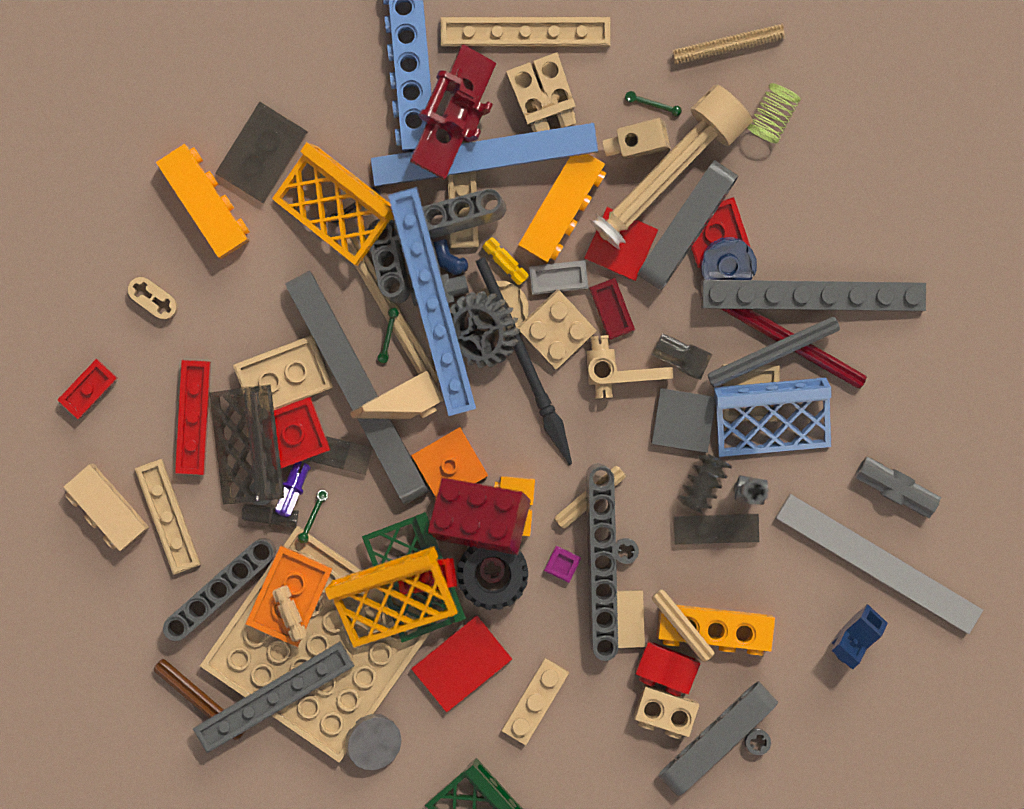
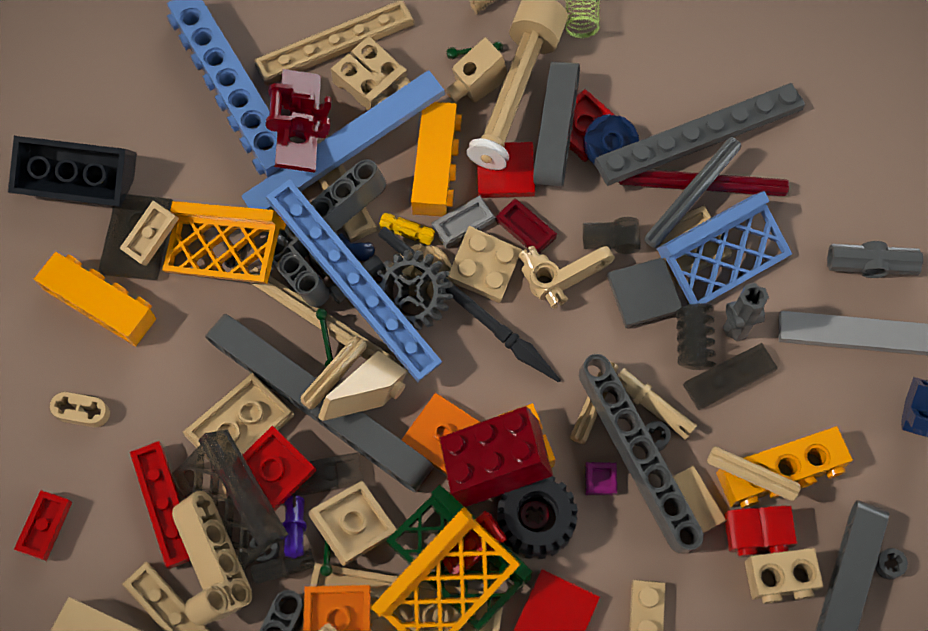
camera: 20 degrees left, 20 degrees down
(216, 486) = (213, 560): none -> tan beam
(227, 63) = (71, 171): none -> black slope
(274, 163) = (149, 233): none -> tan plate
(341, 508) = (352, 523): none -> tan plate
(380, 374) = (333, 372): none -> tan axle
(634, 513) = (655, 404): none -> tan pin

